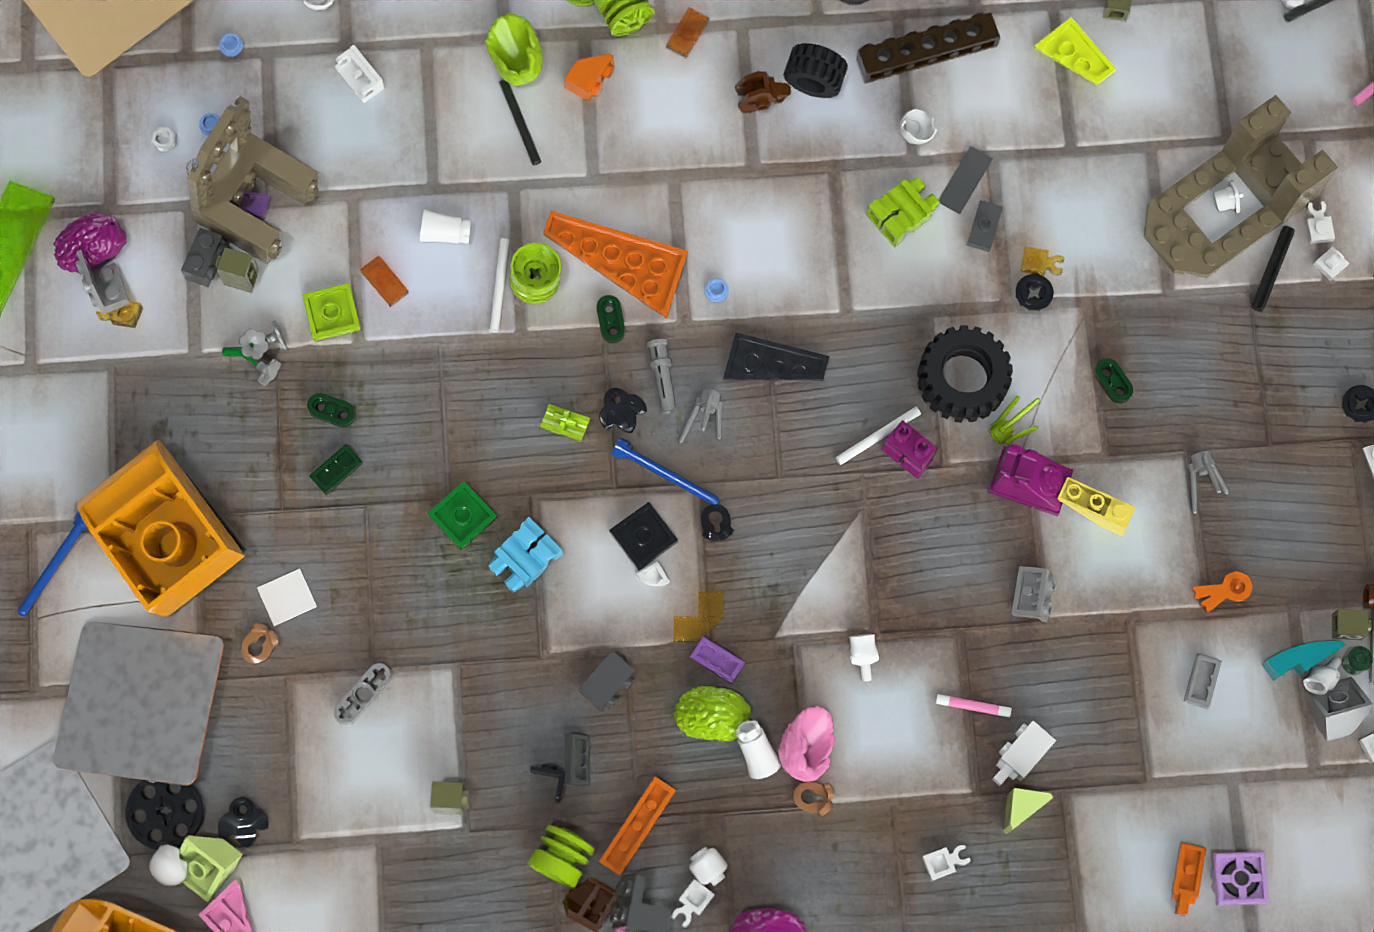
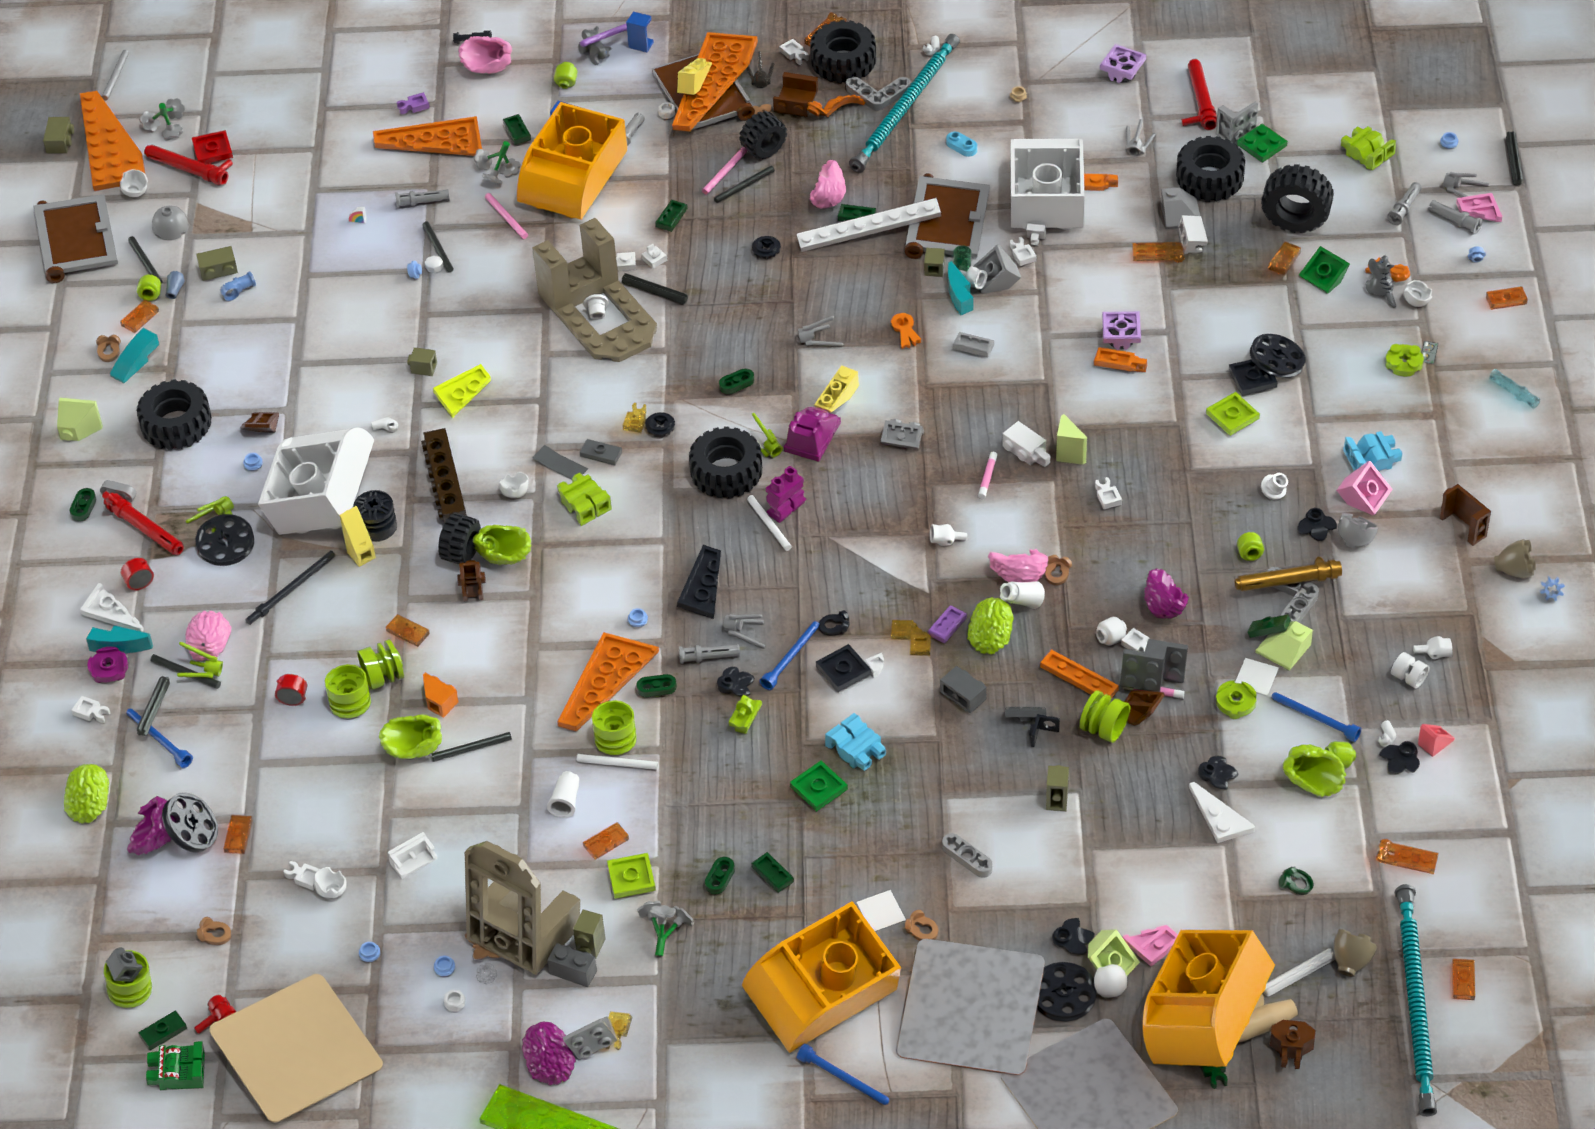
camera: 80 degrees left, 25 degrees down
(808, 124) = (502, 544): none -> lime hair

